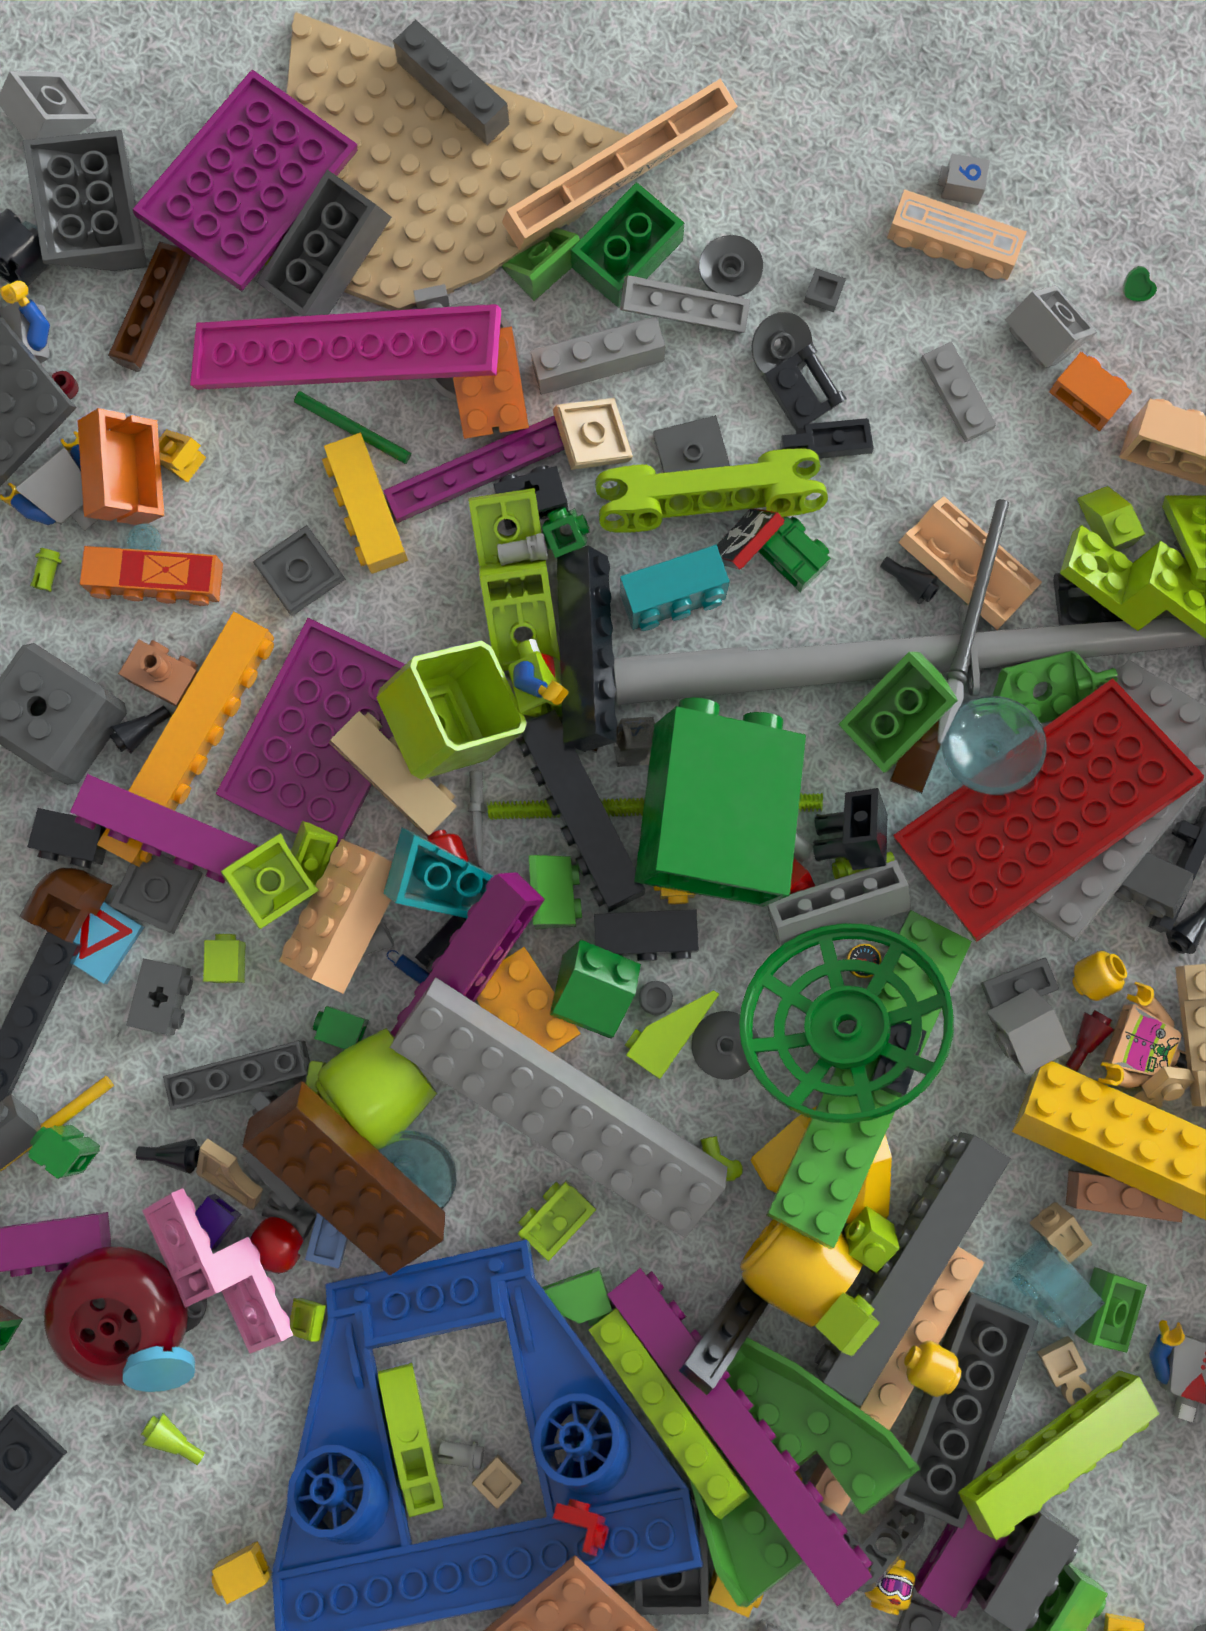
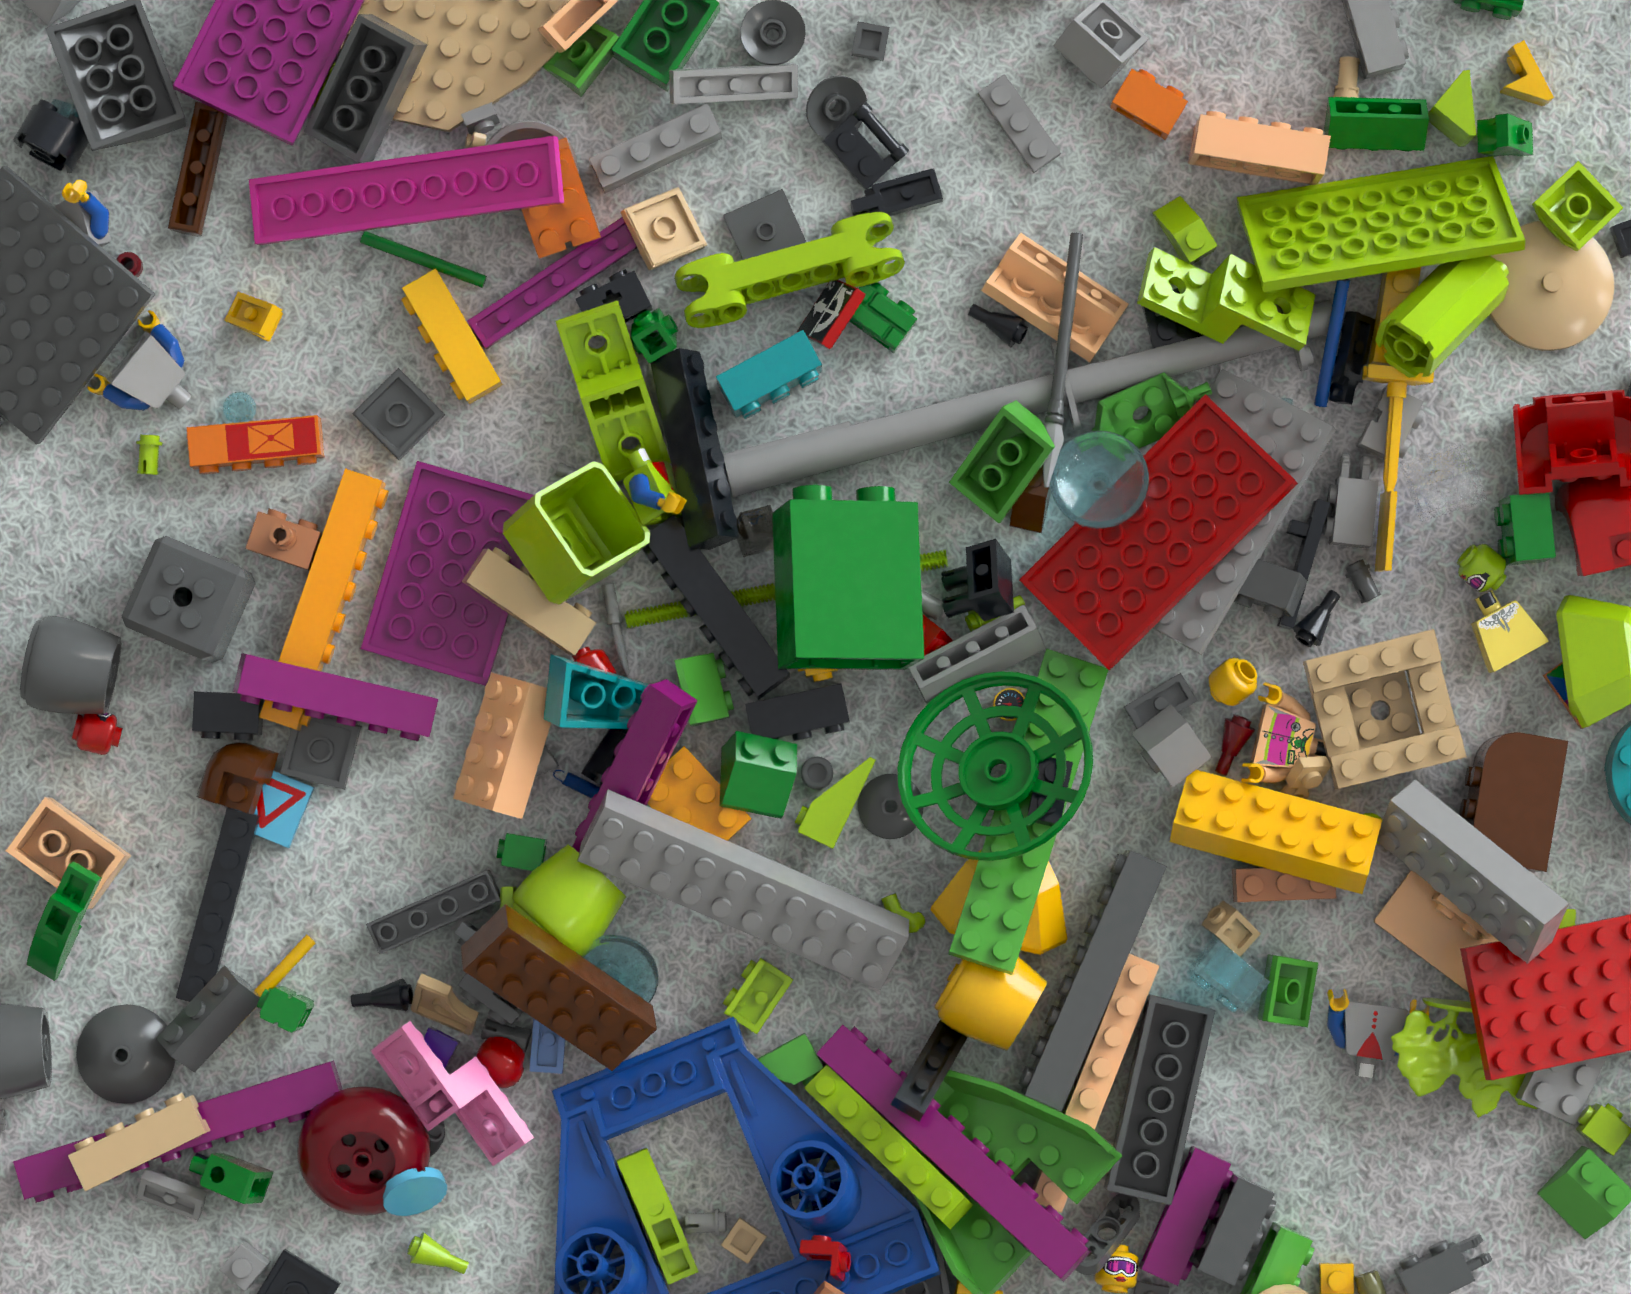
camera: 15 degrees left, 5 degrees up
(120, 467) = (208, 344): orange piece -> none
(133, 732) = (266, 603): black cone -> none
(152, 1014) = (334, 867): dark grey brick -> none
(224, 959) = (399, 805): lime brick -> none
(268, 881) = (432, 726): lime slope -> none
(307, 1319) = (542, 1124): lime tile -> none
(313, 849) = (461, 696): lime slope -> none
(530, 549) = (625, 360): light grey pin -> none
(848, 1323) = (1038, 1038): lime brick -> none
(871, 1239) = (1051, 961): lime brick -> none
(932, 1368) = (1121, 1066): yellow head -> none
(1058, 1454) = (1251, 1124): lime brick -> none
(1064, 1367) = (1249, 1049): tan plate -> none

